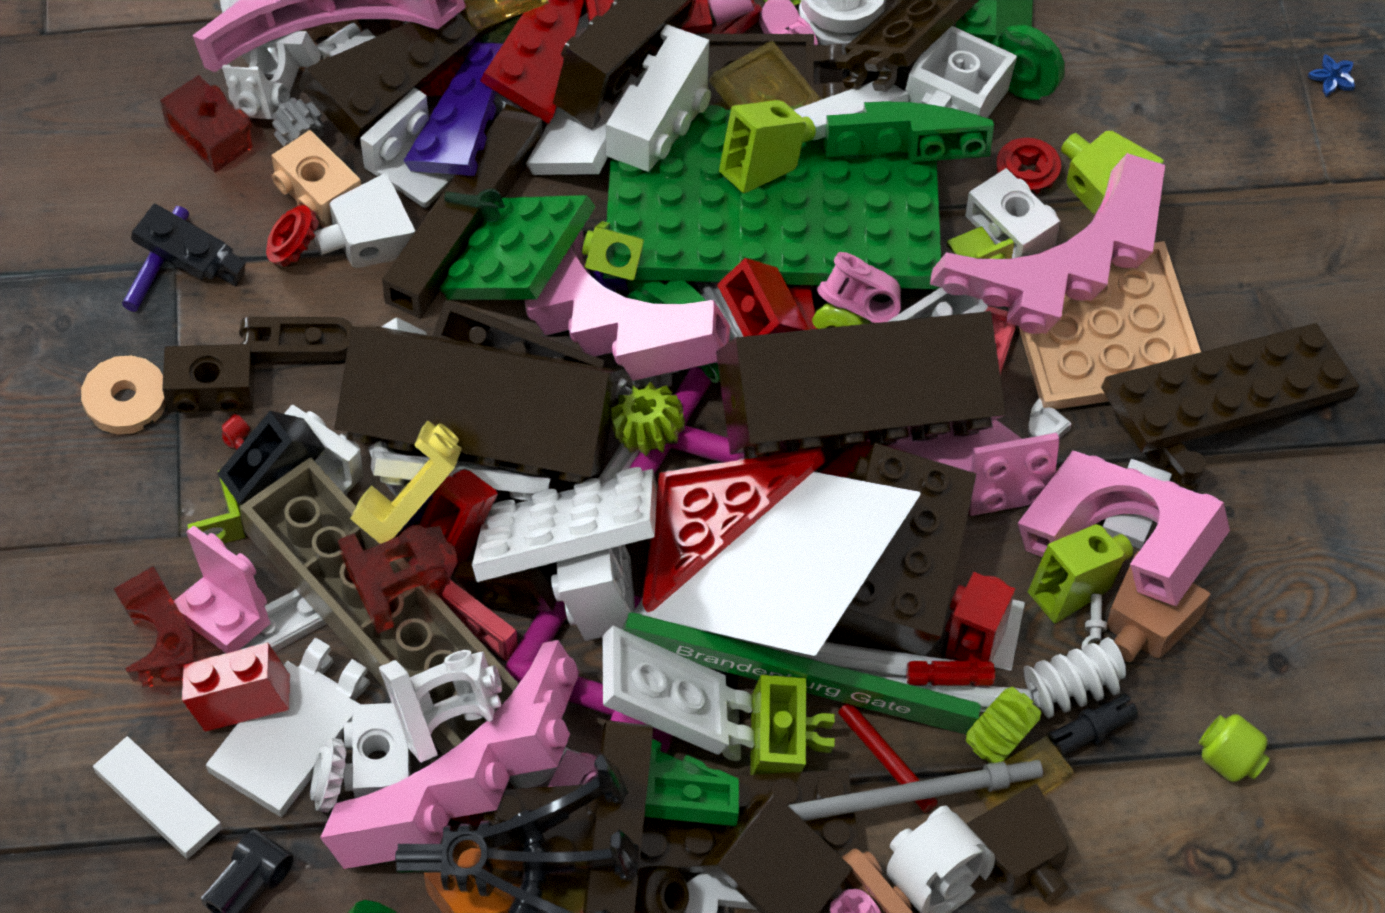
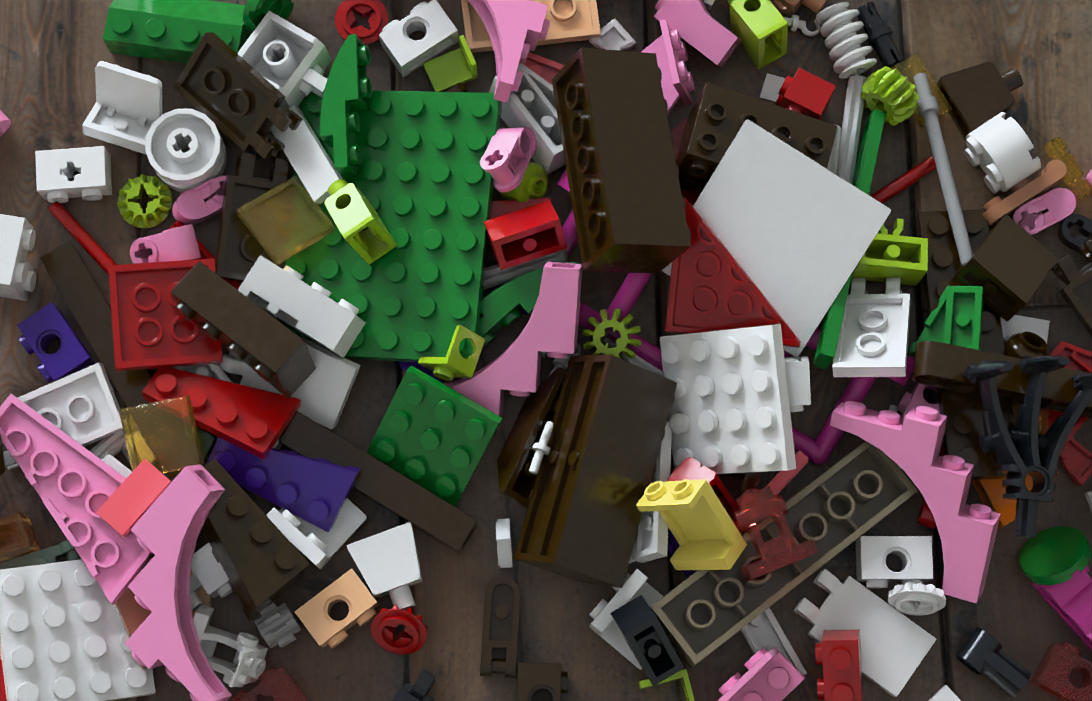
camera: 85 degrees left, 20 degrees up
(234, 431) = (589, 679): red hand -> none
(418, 717) = (877, 501): white tile -> none
(487, 201) = (386, 468): clear green hand -> none
(501, 338) = (541, 448): none -> white hand
(950, 673) = (844, 135): red axle -> none

